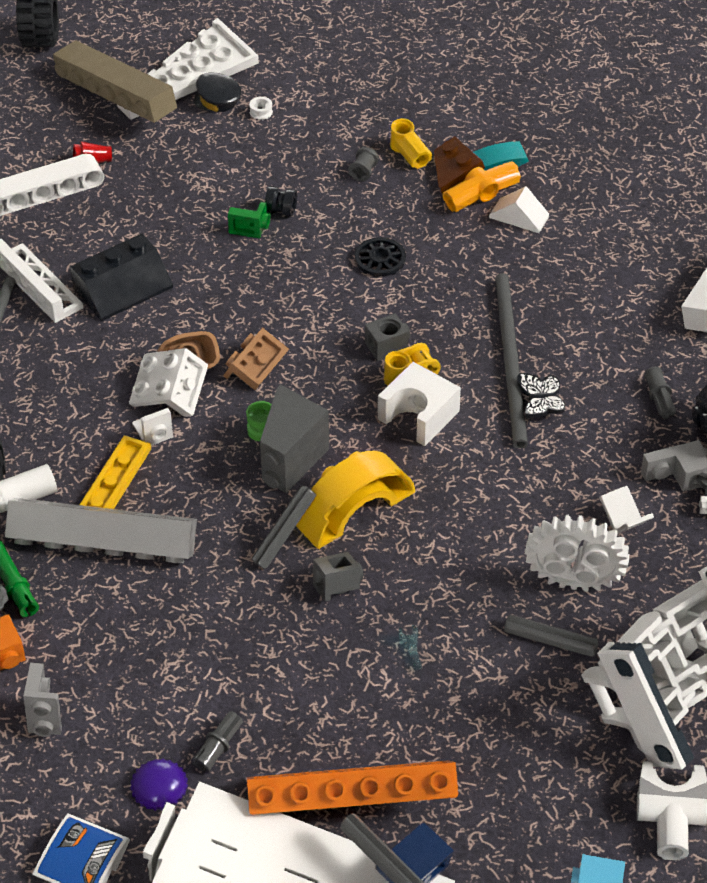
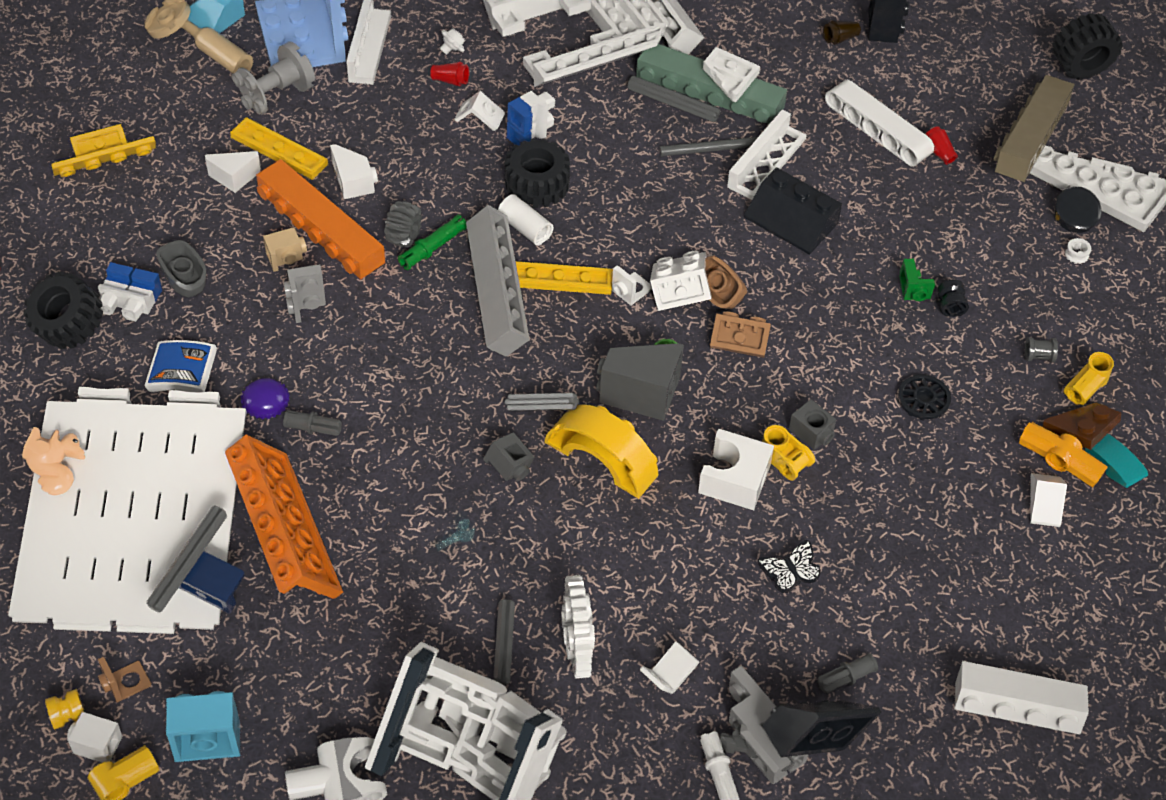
camera: 70 degrees right, 5 degrees up
(511, 362) = (841, 533): dark grey piece -> none

